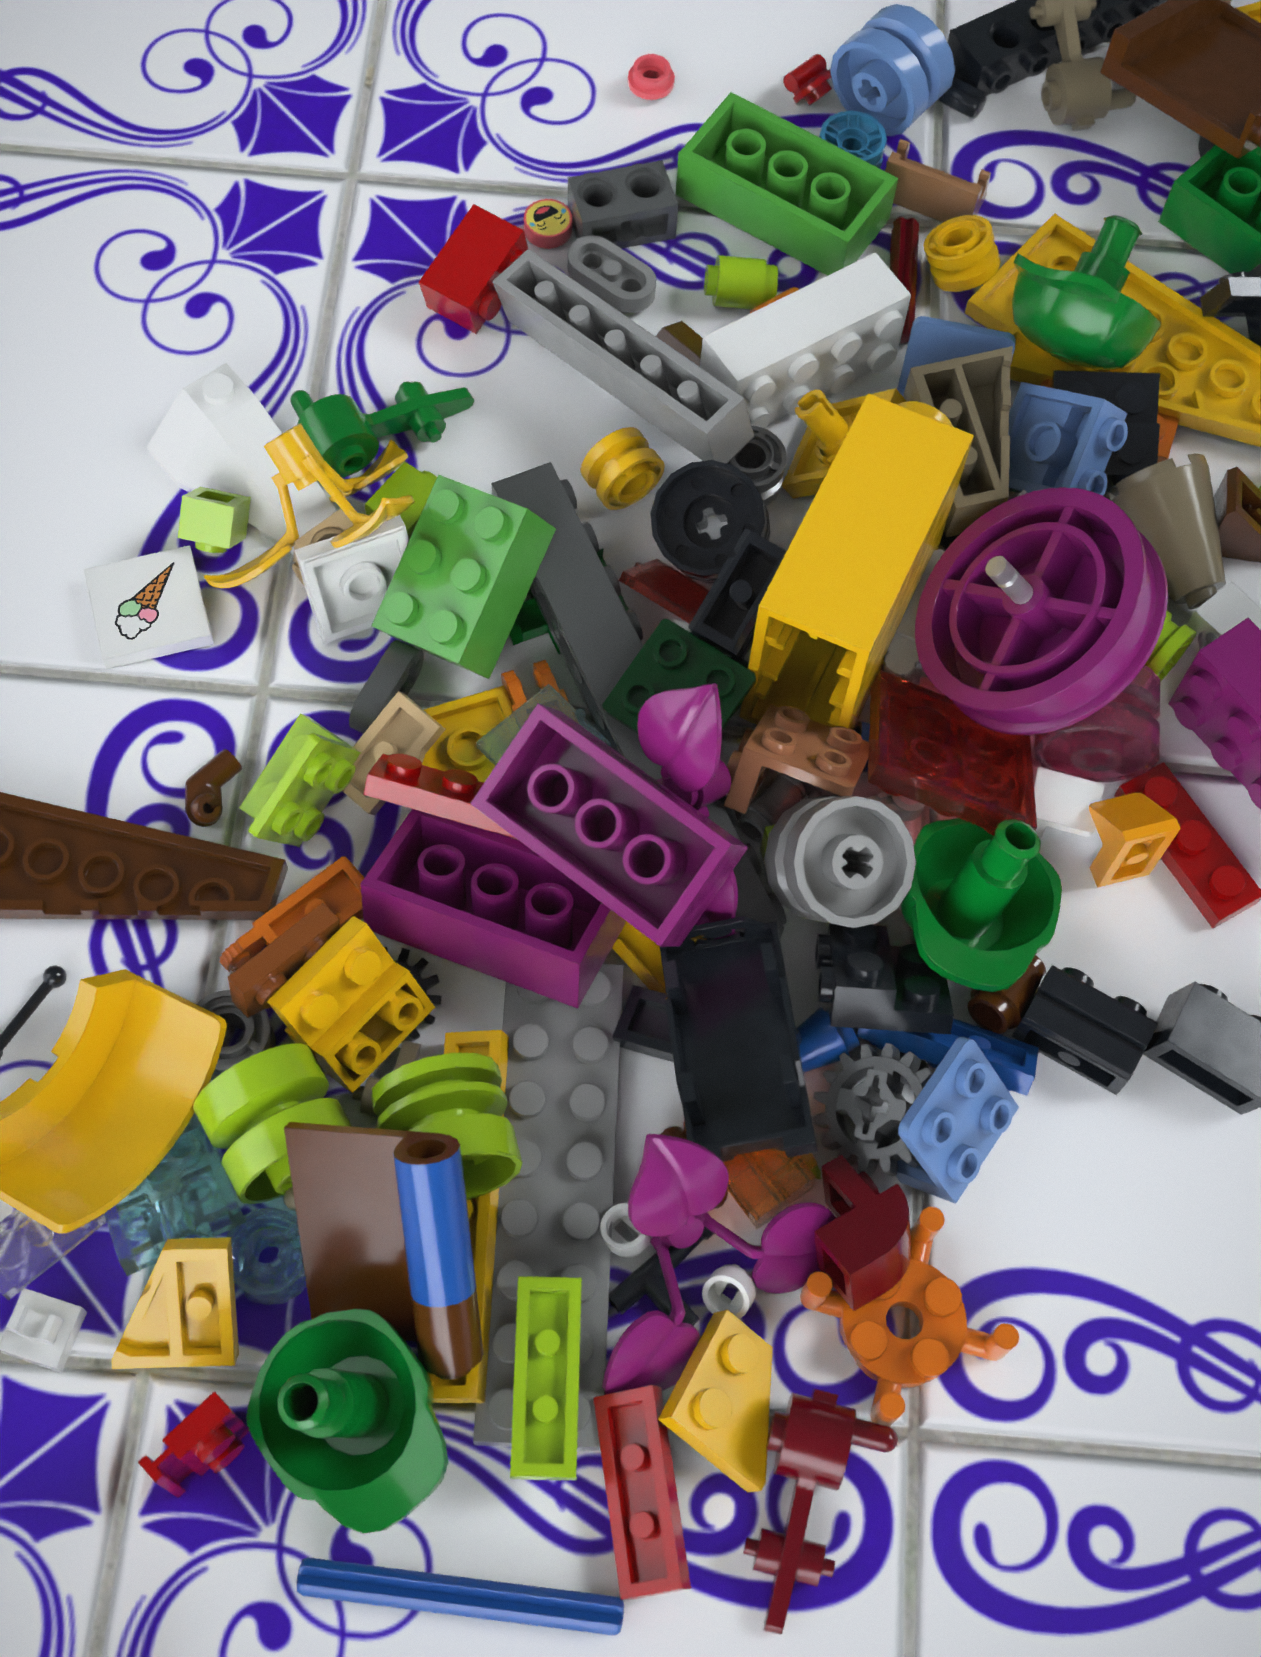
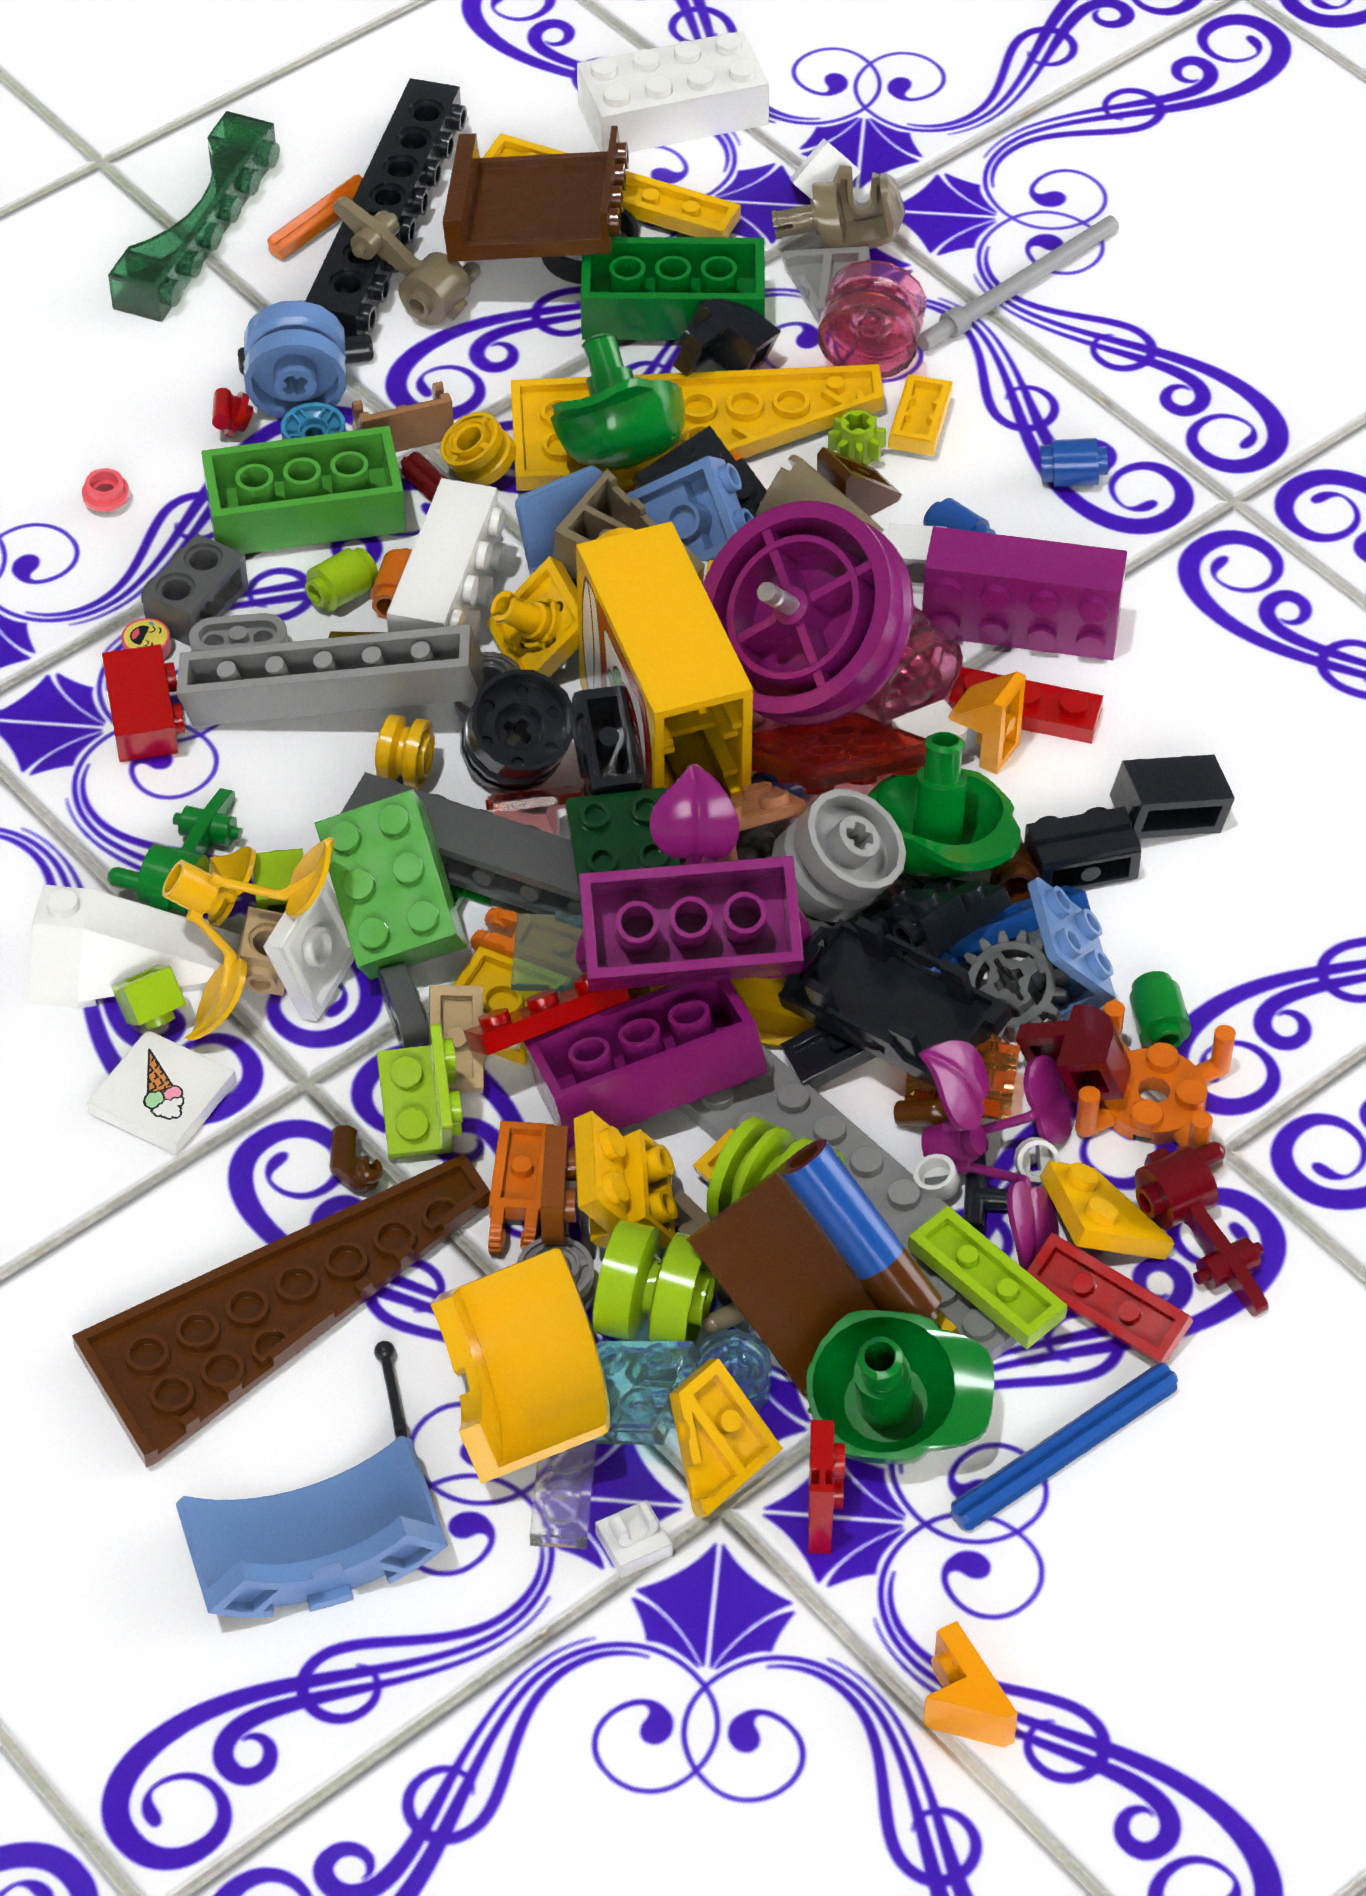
camera: 40 degrees left, 15 degrees down
(989, 1248) = (1159, 1009): none -> green brick

